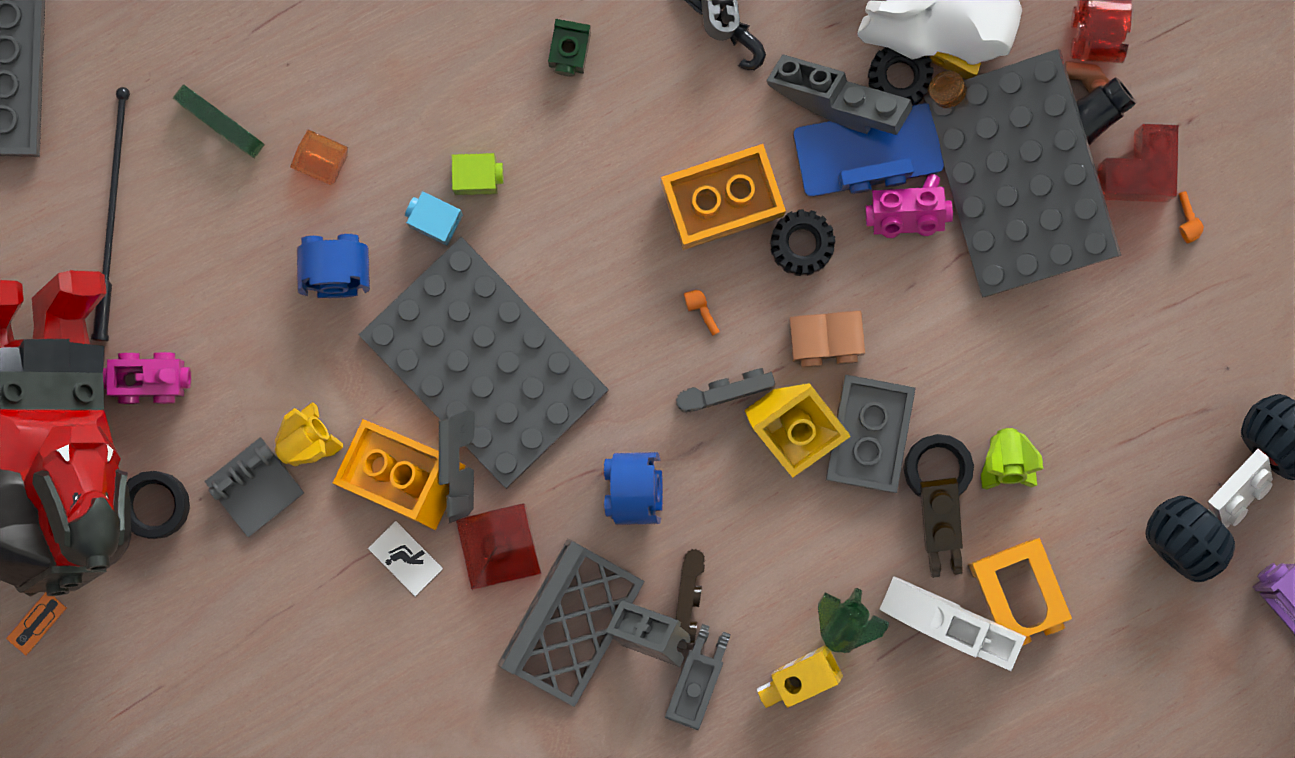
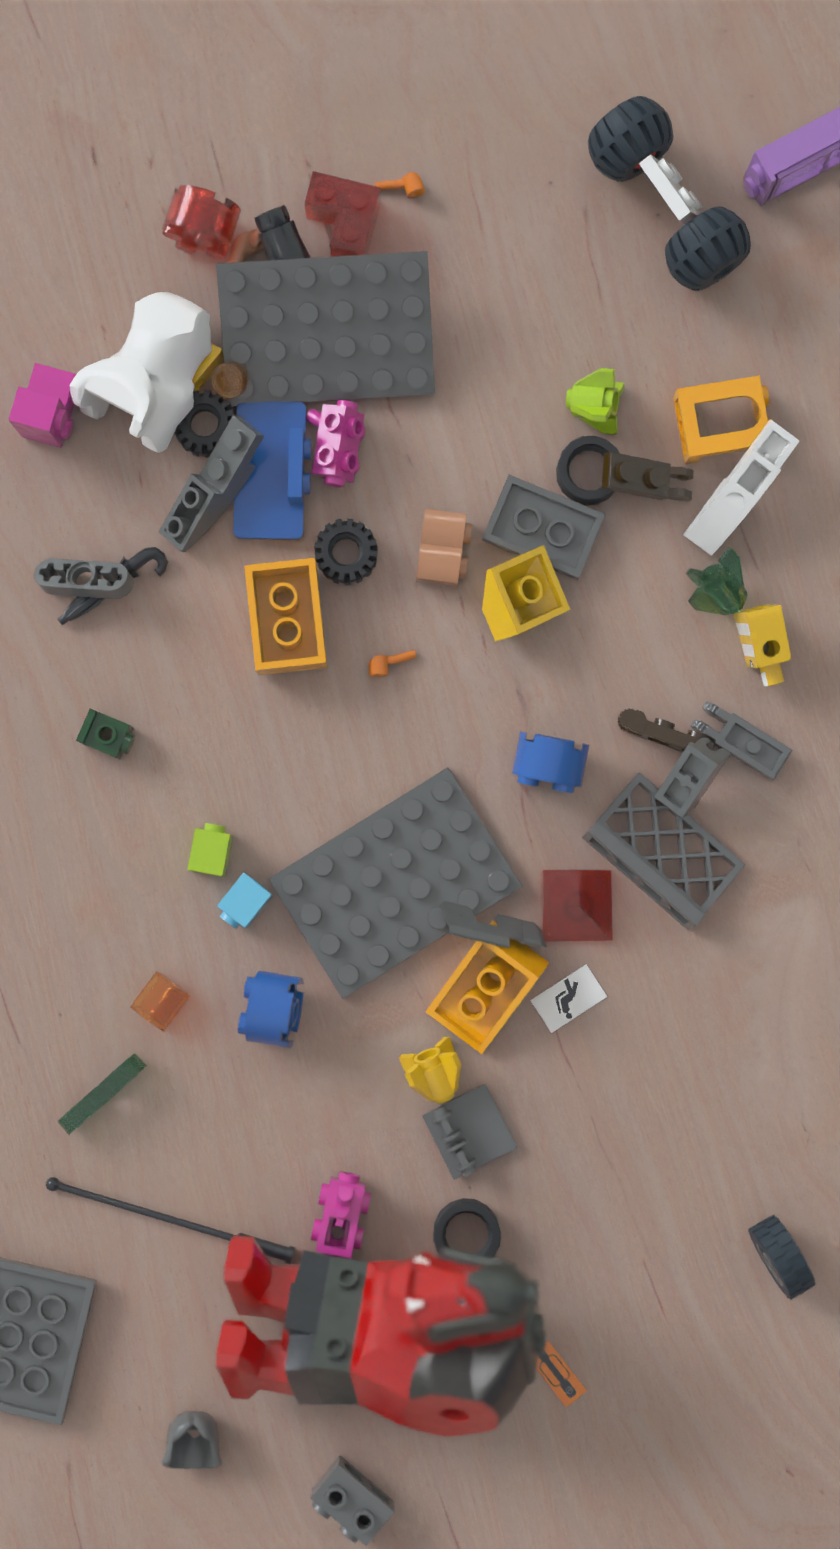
camera: 80 degrees left, 0 degrees up
(722, 391) = (473, 657): dark grey hinge -> none

